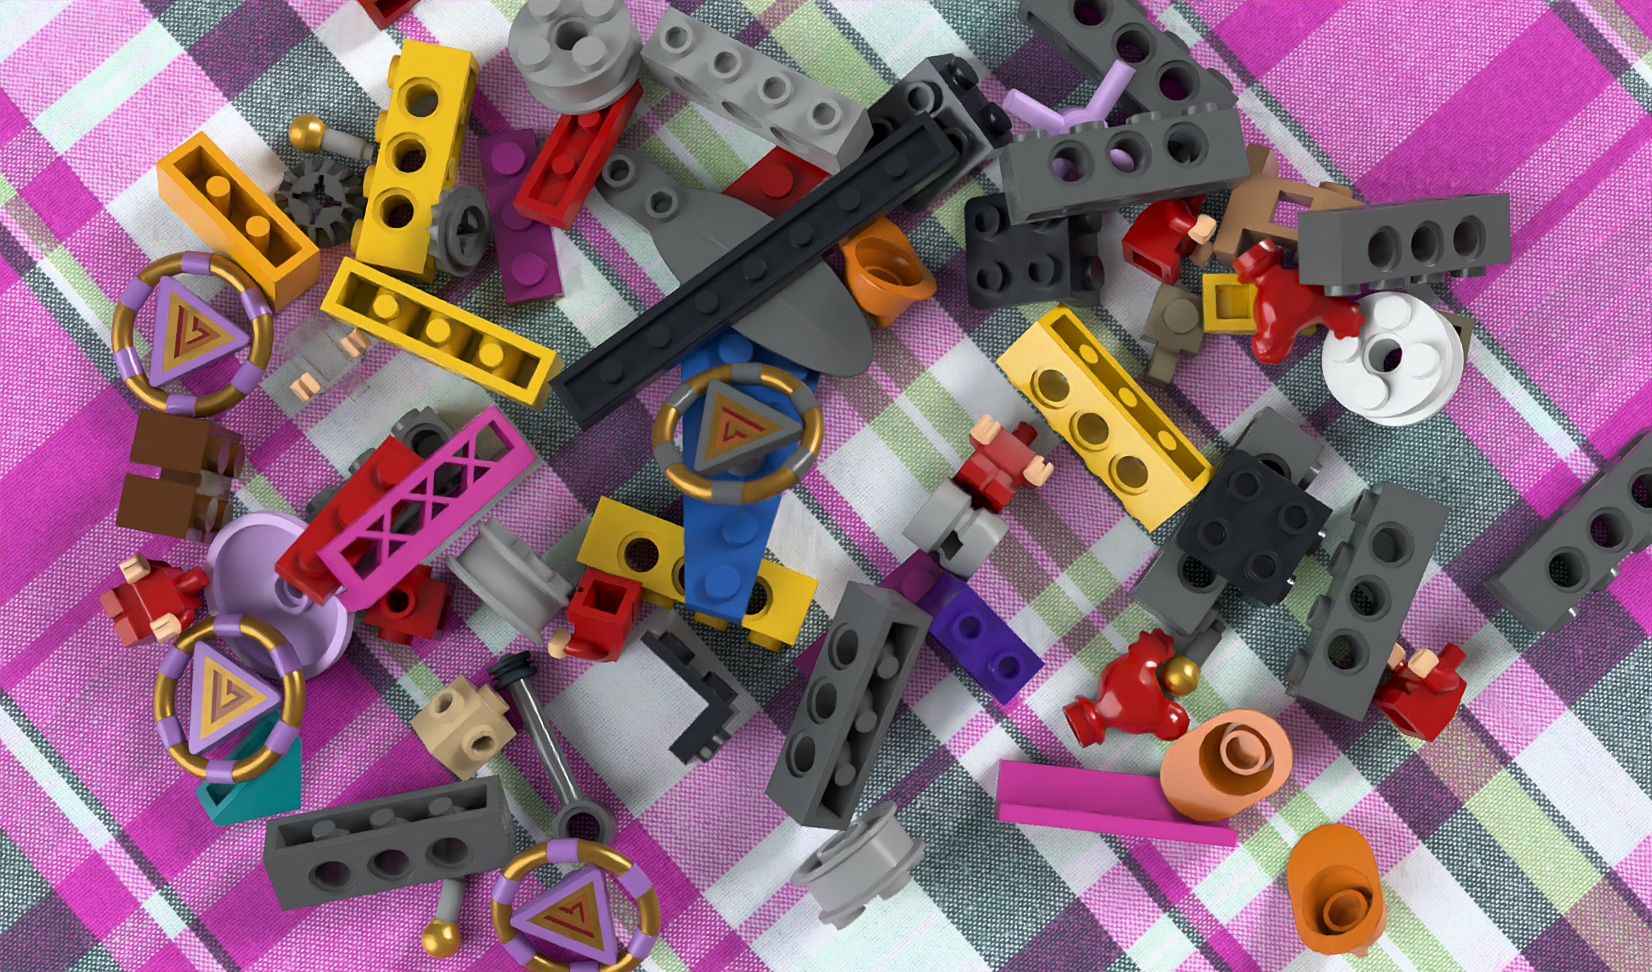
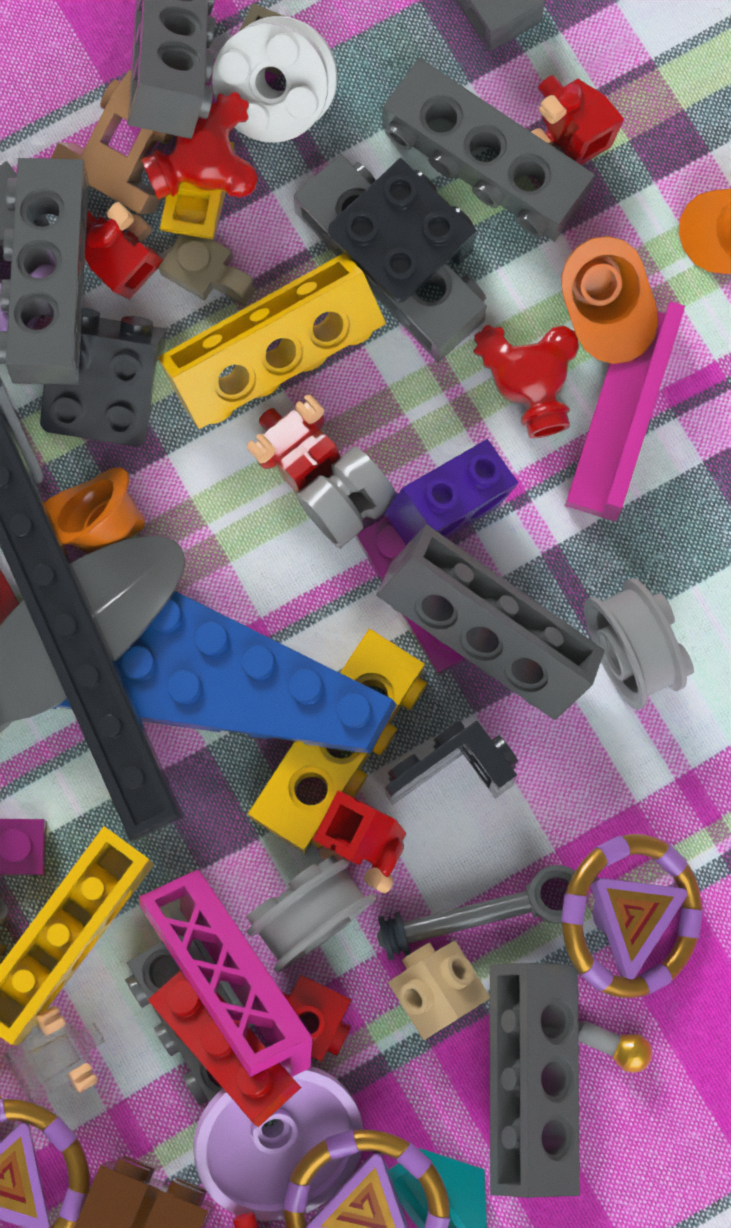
camera: 75 degrees left, 5 degrees down
(739, 434) = (218, 666): piece -> none
(1182, 673) = (519, 325): piece -> none

